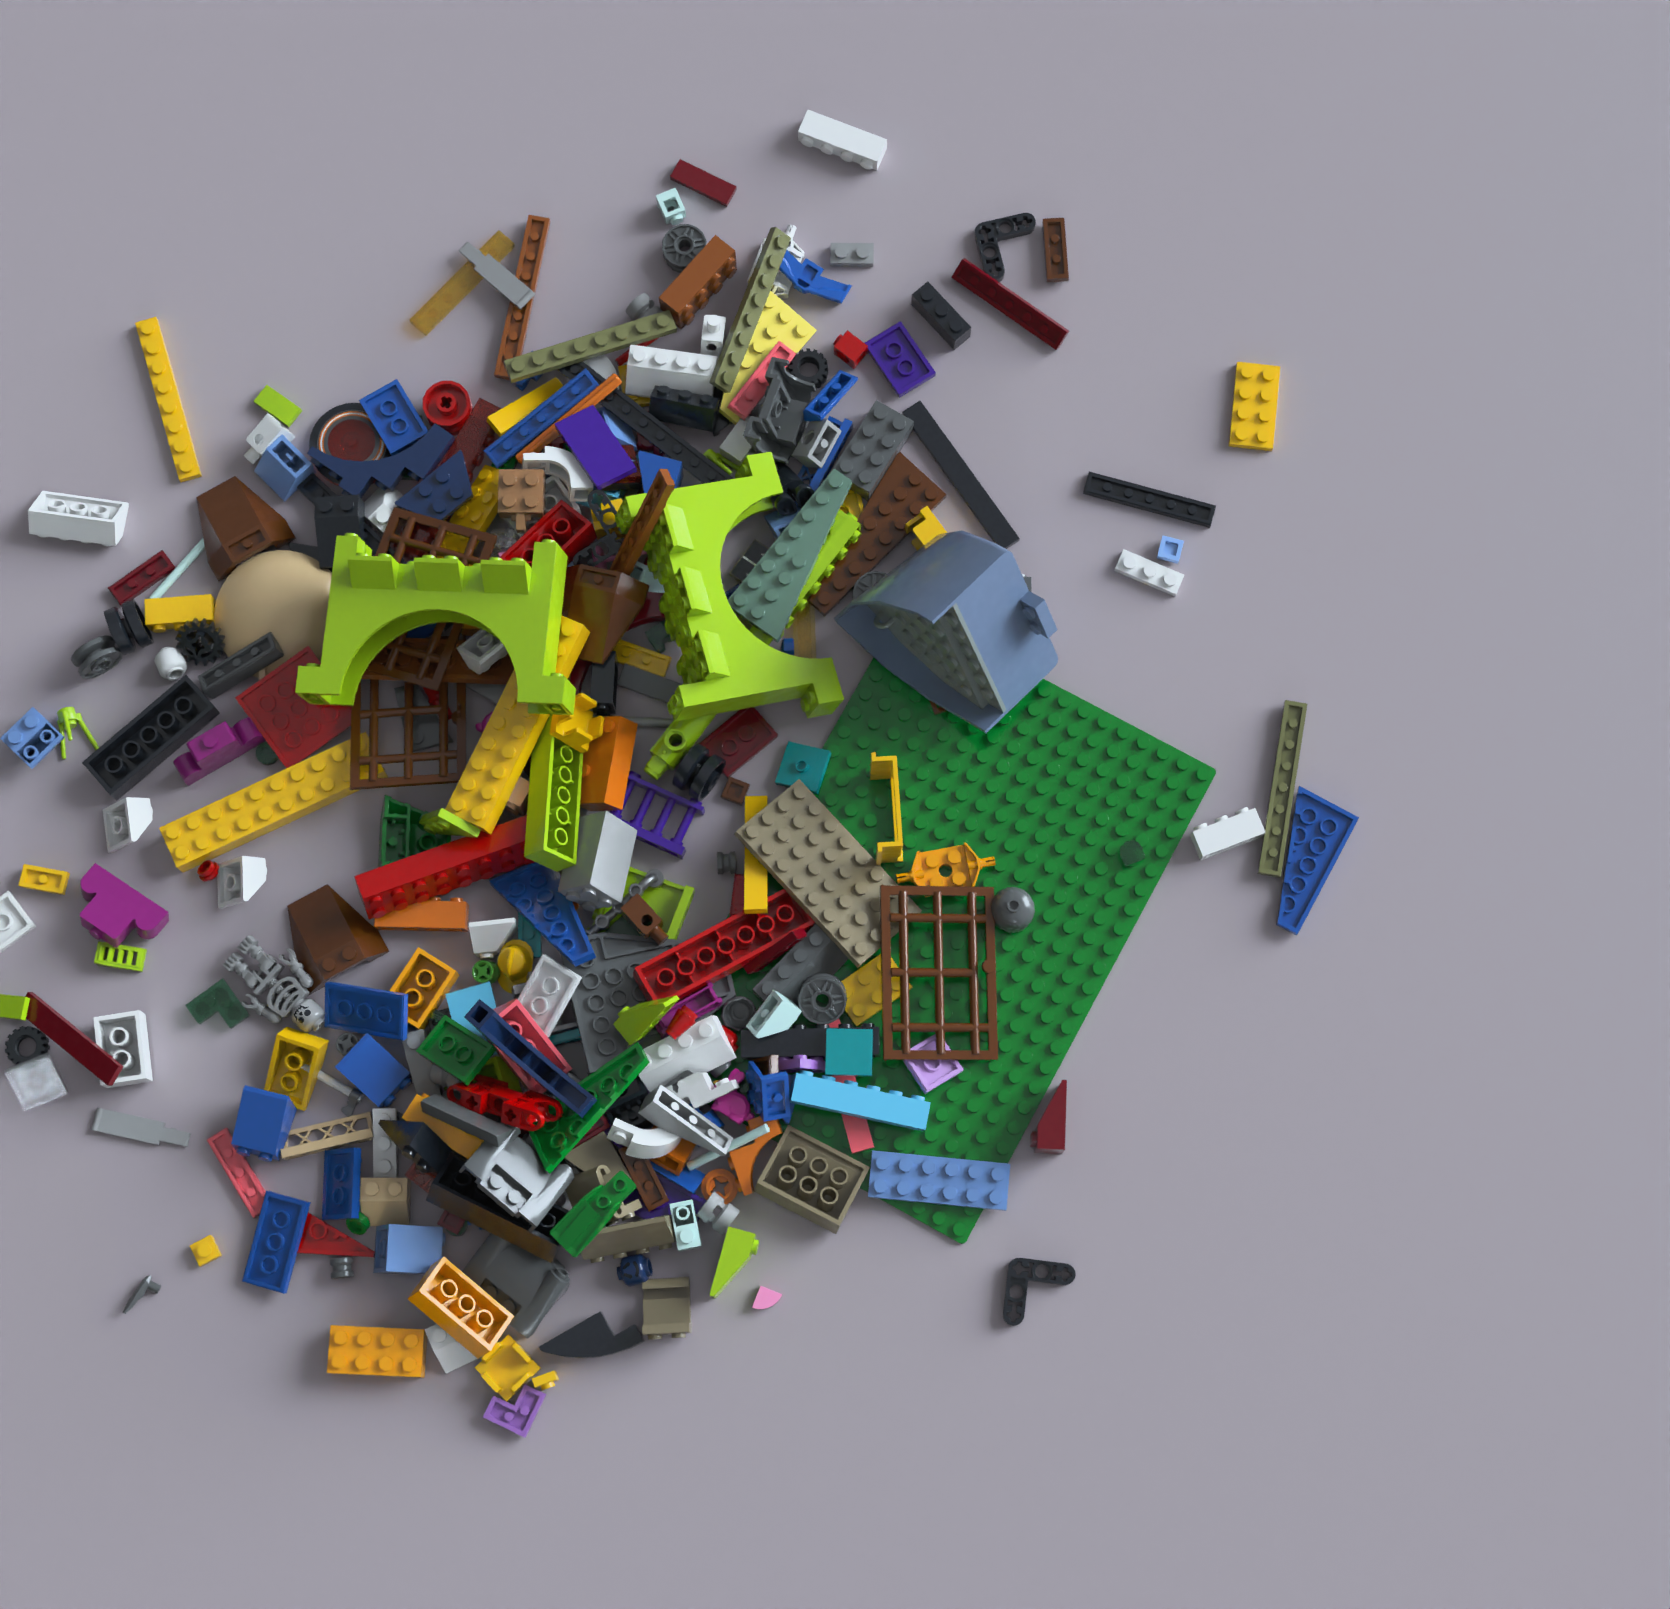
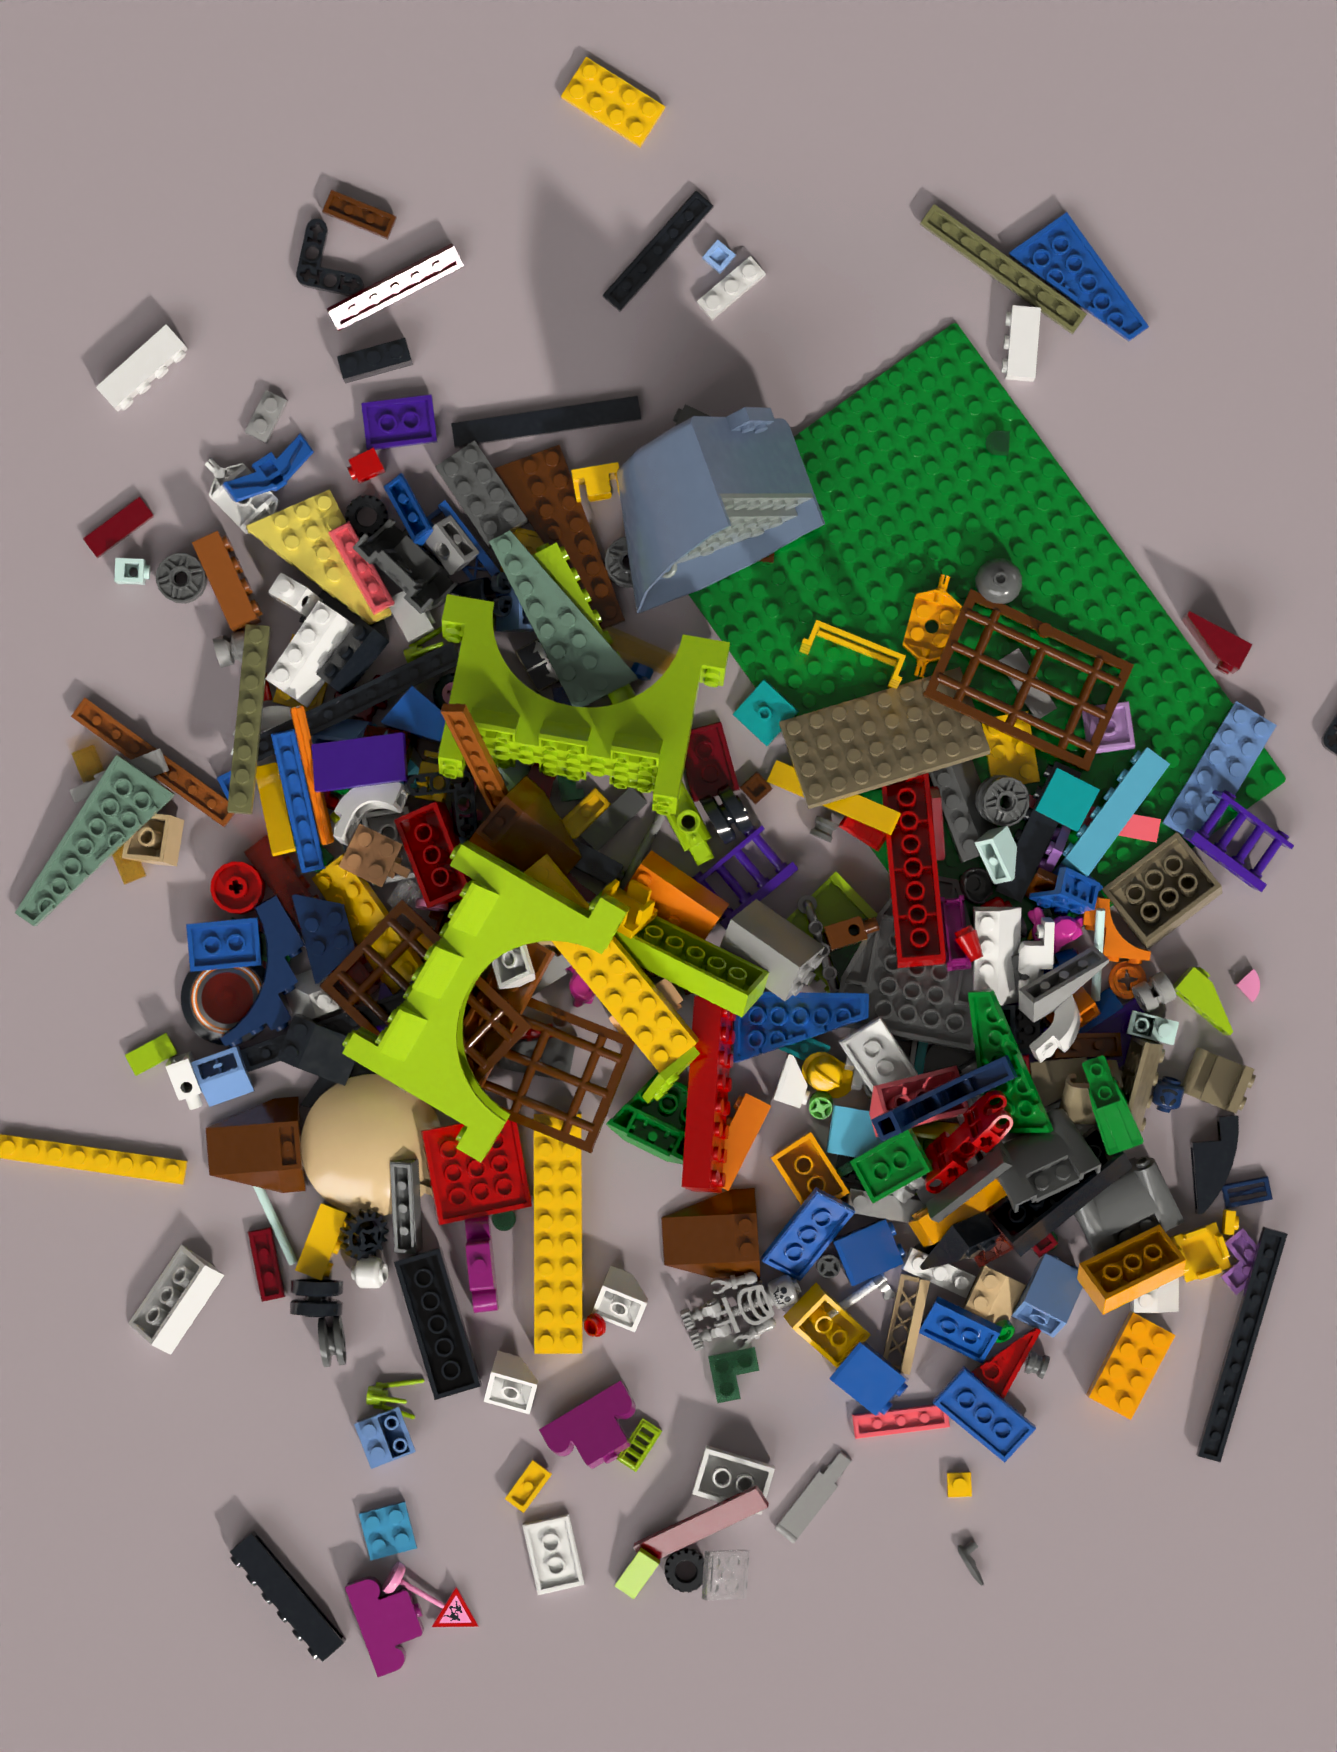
camera: 60 degrees left, 10 degrees up
(440, 1442) = (1241, 1344): none -> black plate
(457, 323) = (156, 841): none -> tan slope
(459, 280) = (109, 818): none -> sand green wing
(592, 1400) = (1226, 1195): none -> dark blue tile
(639, 1020) = (947, 976): lime slope -> none
(750, 310) = (285, 544): olive plate -> none
(867, 1231) = (1235, 863): none -> dark purple fence
(924, 992) = (1036, 700): none -> light grey tile

